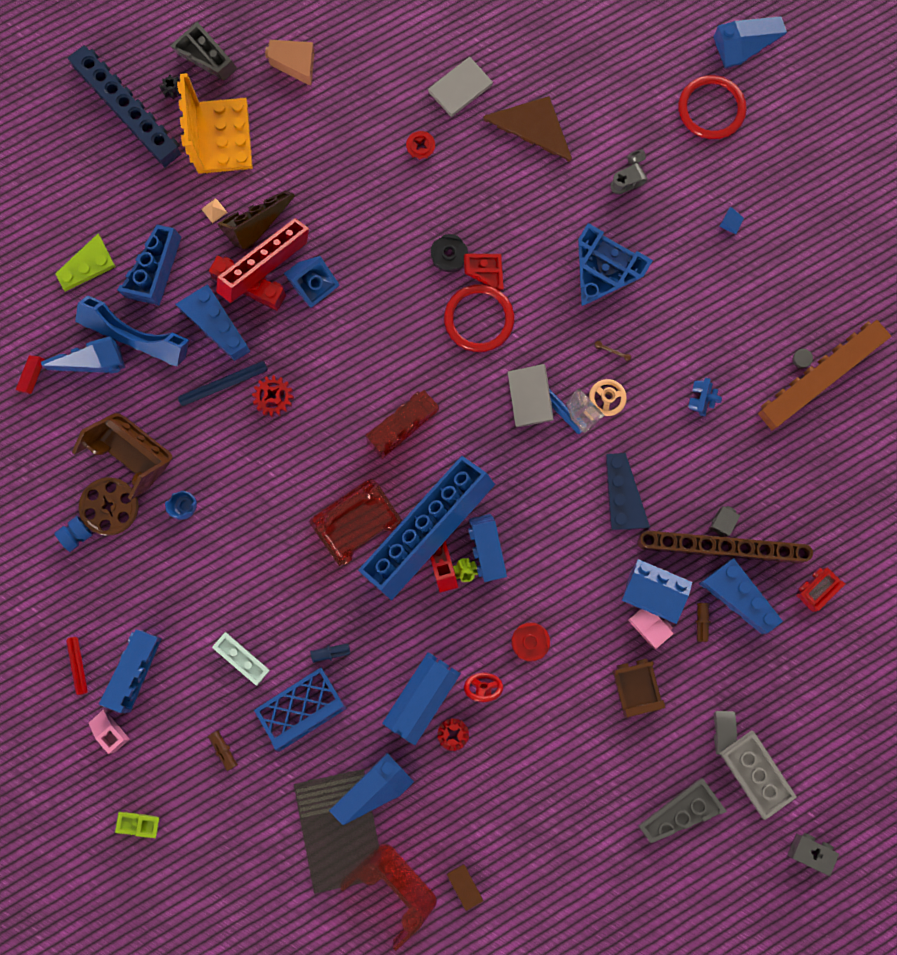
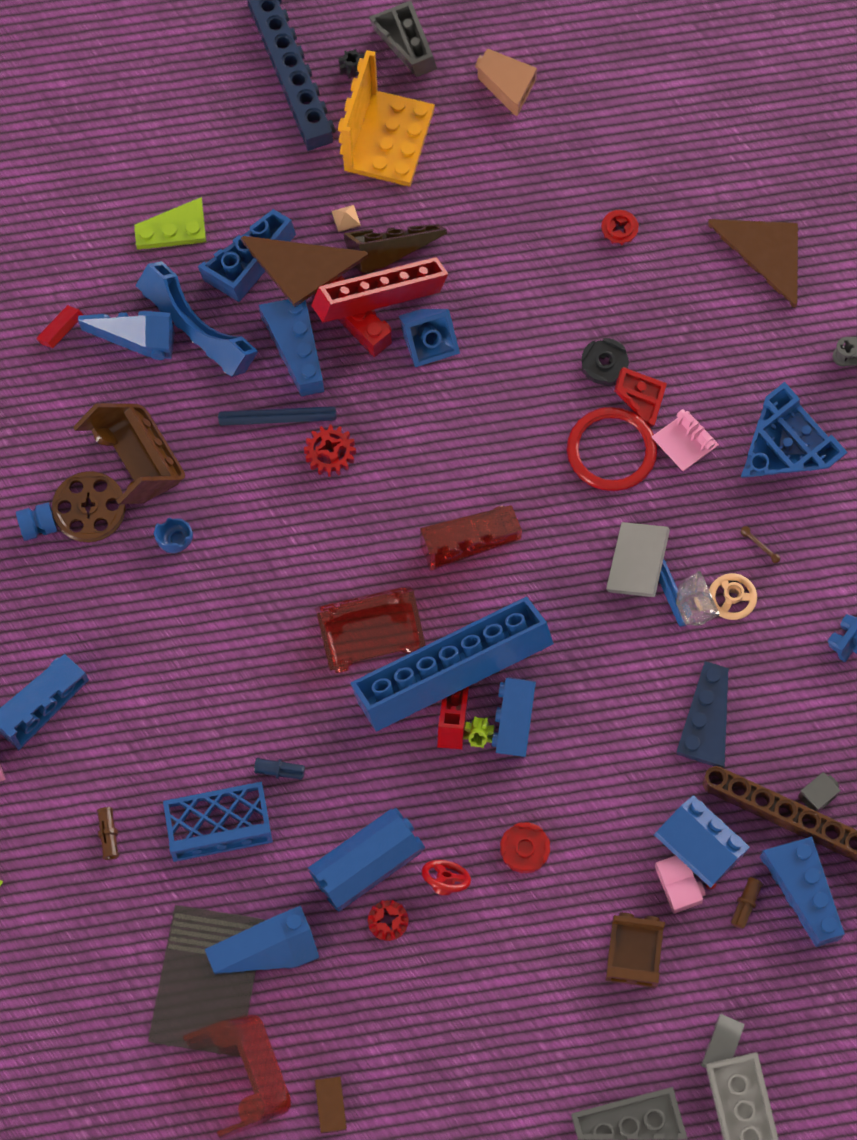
camera: 25 degrees right, 10 degrees down
(196, 263) = (301, 267): none -> reddish brown tile
(241, 658) = (172, 736): light aqua plate -> none
(460, 86) = (694, 177): light grey tile -> none
(530, 292) = (685, 440): none -> bright pink hinge

